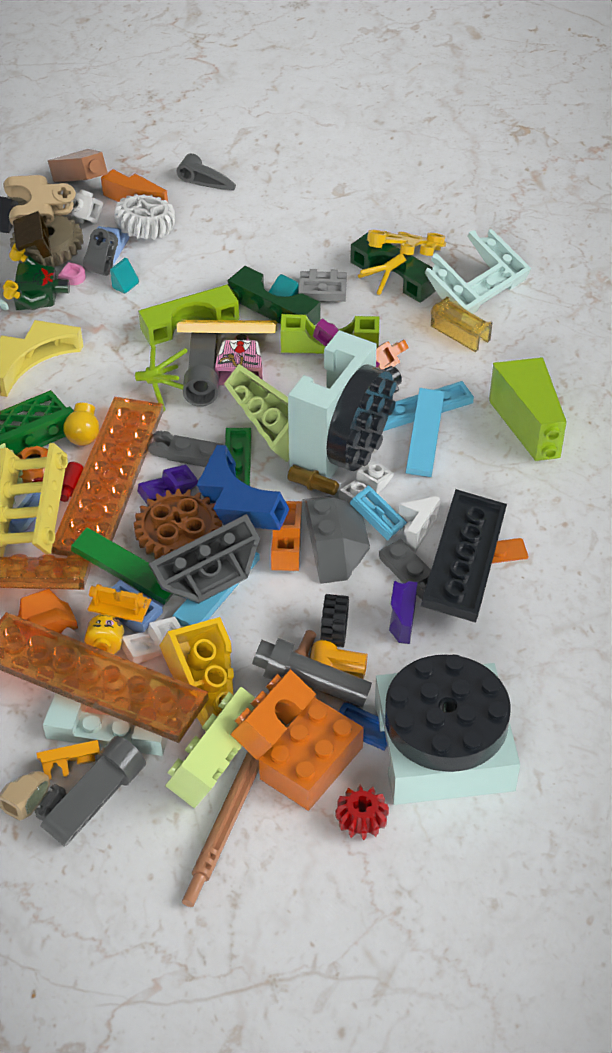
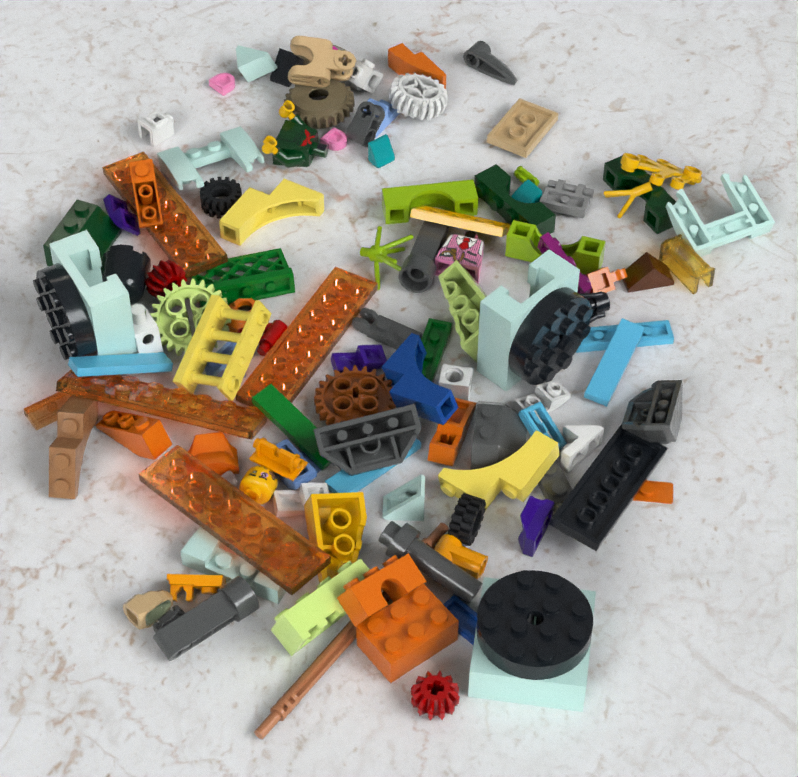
camera: 15 degrees right, 0 degrees up
(32, 231) = (305, 93): dark brown panel -> none
(78, 166) = (370, 33): nougat slope -> none
(81, 425) = (297, 287): yellow piece -> none
(257, 228) = (522, 128): none -> tan plate
(265, 617) = (406, 501): none -> light aqua slope
(273, 272) = (523, 175): none -> lime piece
(275, 480) = (457, 379): none -> white brick
(312, 480) = (493, 385): pearl gold axle -> none
(366, 565) = (513, 475): none -> light yellow arch
(426, 341) = (647, 274): none -> reddish brown slope
(484, 471) = (656, 412): none -> dark grey wedge
(529, 405) = (720, 357): lime slope -> none

